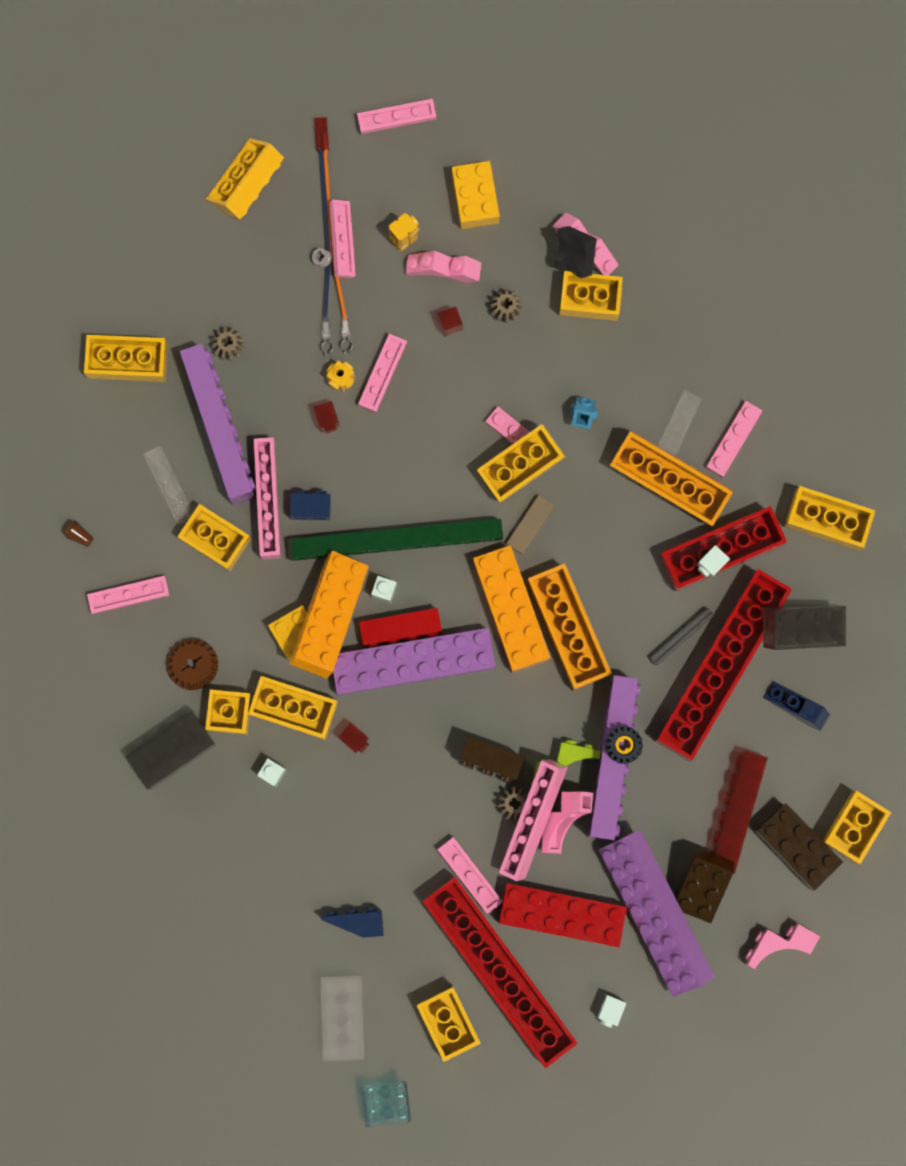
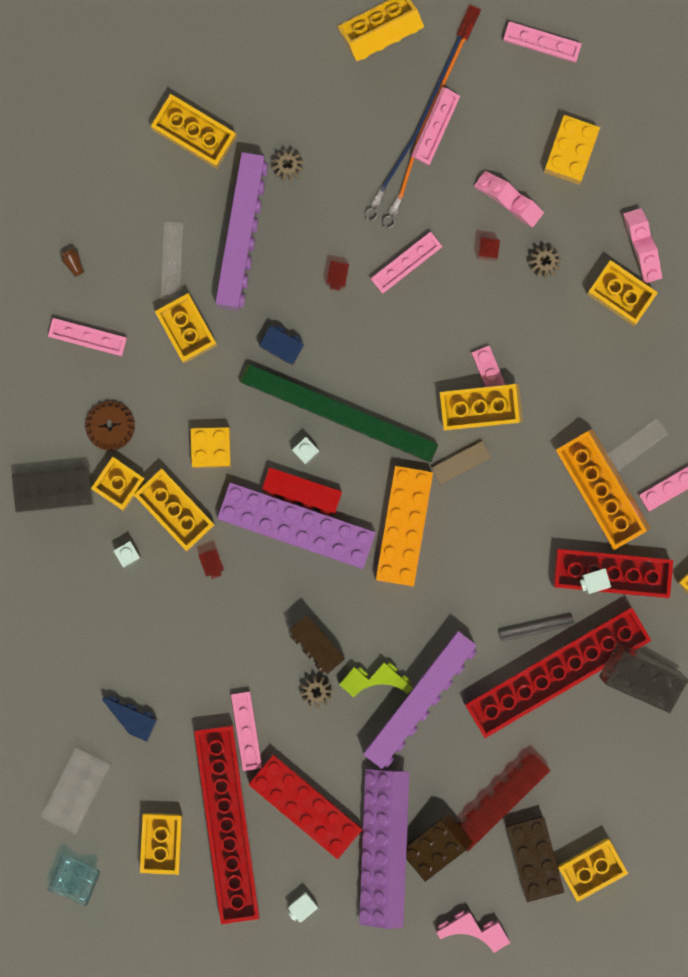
camera: 30 degrees right, 5 degrees up
(267, 498) = (249, 319): bright pink brick -> none
(316, 257) = (409, 138): light grey bush -> none
(329, 615) = (246, 448): light orange brick -> none
(344, 381) = (368, 253): yellow brick -> none
(403, 231) = (491, 149): yellow brick -> none
(533, 819) = (323, 714): bright pink brick -> none
(569, 627) = (444, 568): light orange brick -> none
(572, 807) = (342, 728): bright pink arch -> none
(575, 251) = (628, 249): black brick -> none
(583, 412) = (559, 391): dark azure brick -> none
(629, 754) = (433, 684): black bush -> none
(797, 706) = (601, 741): dark blue slope -> none

